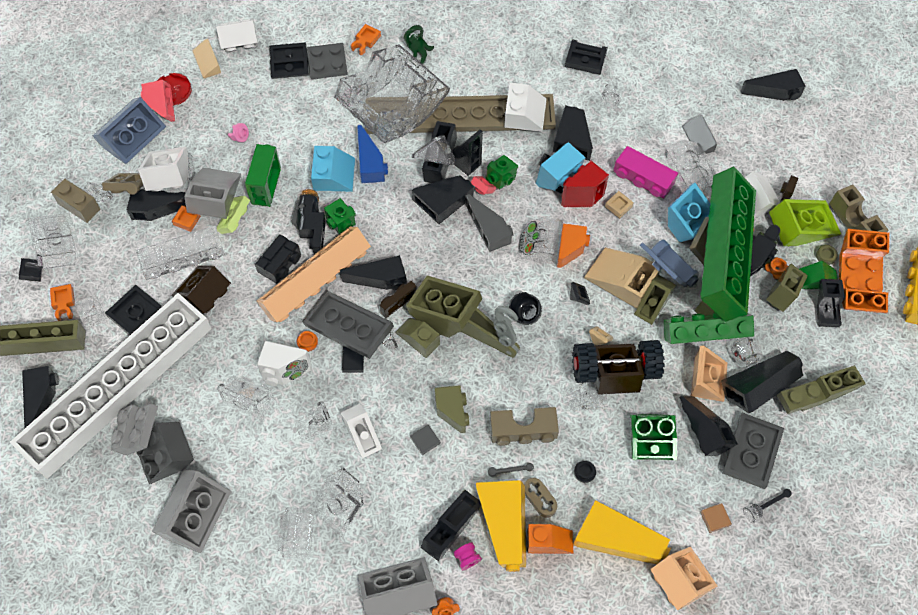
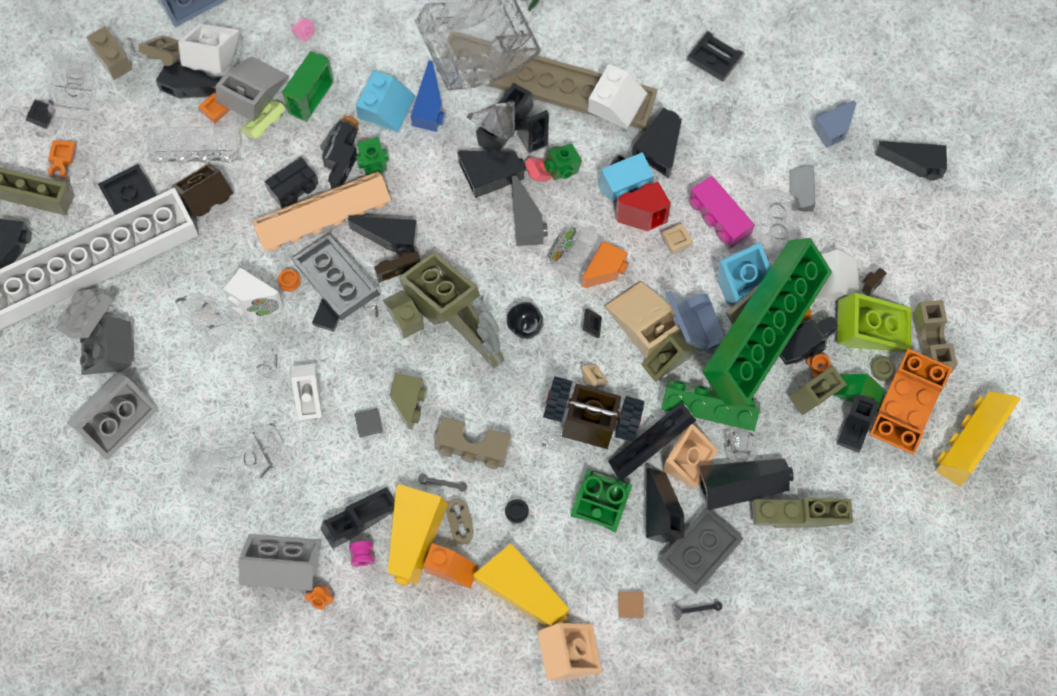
camera: 20 degrees right, 5 degrees up
(676, 372) = (652, 441): none -> black plate
(703, 79) = (834, 125): none -> sand blue slope

